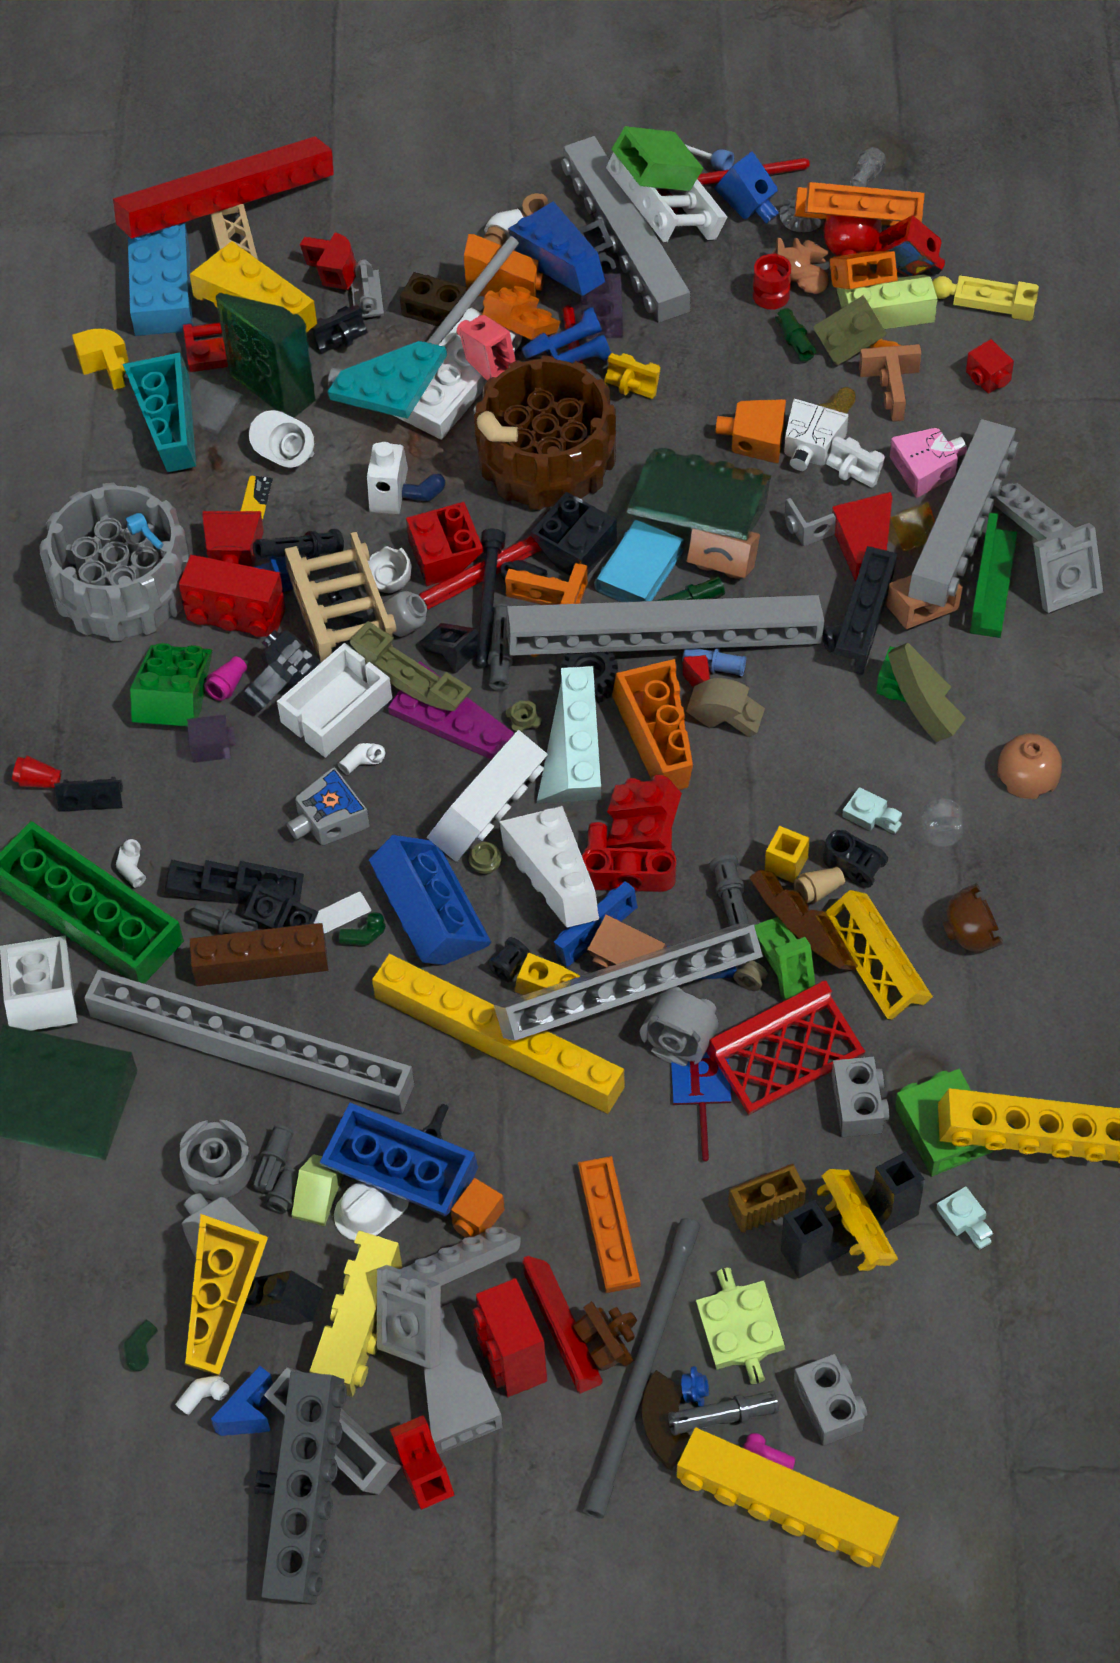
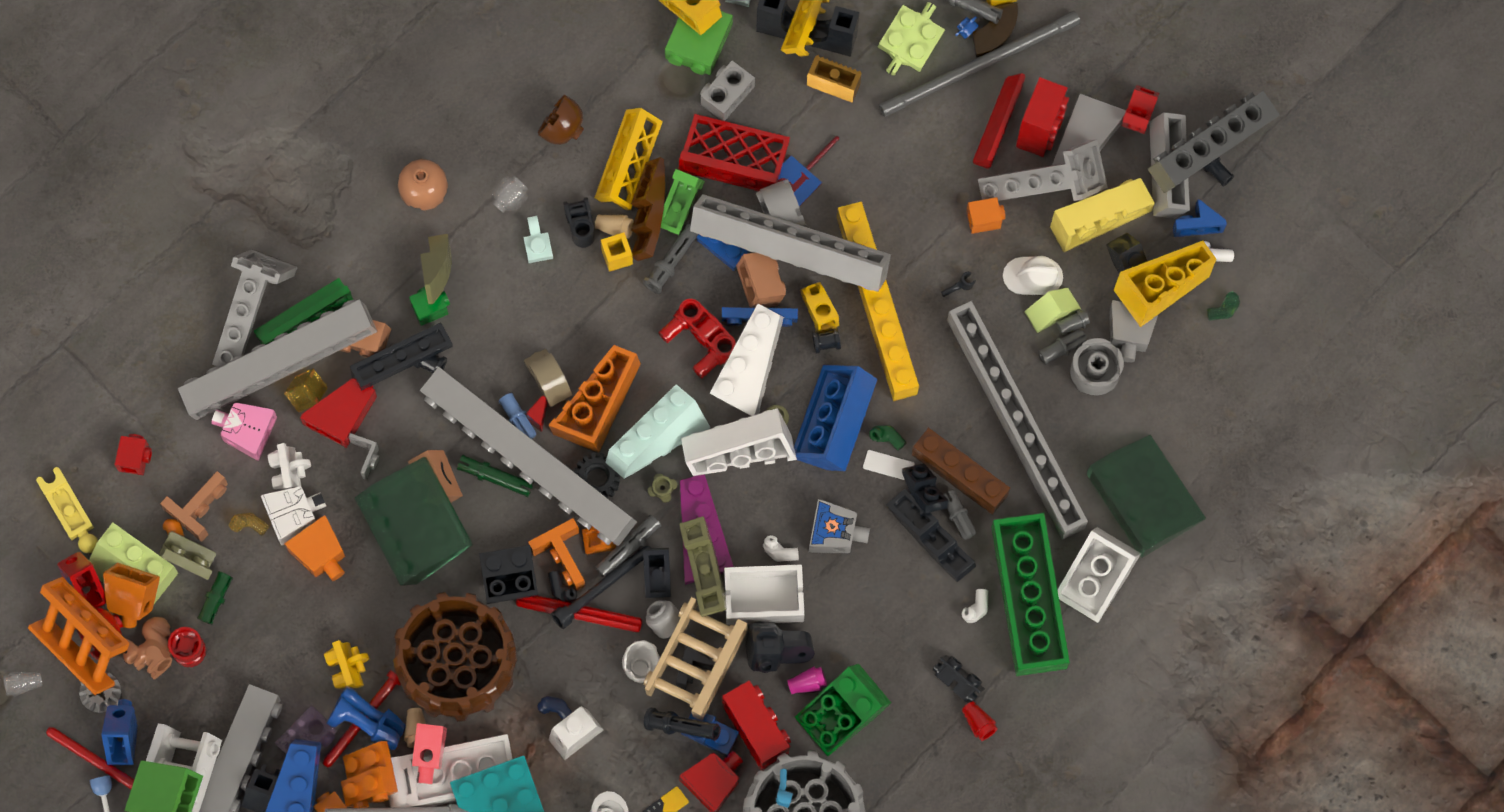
camera: 140 degrees left, 15 degrees up
(210, 738) = (856, 644): clear purple brick -> none
(399, 1159) = (1002, 272): blue slope -> none
(443, 542) = (589, 647): red slope -> none
(494, 431) = (504, 656): tan arm -> none
(598, 1323) = (979, 90): reddish brown hips -> none
(609, 1224) = (922, 150): orange tile -> none
(639, 564) = (493, 522): medium azure piece -> none
(643, 813) = (668, 351): red plate -> none

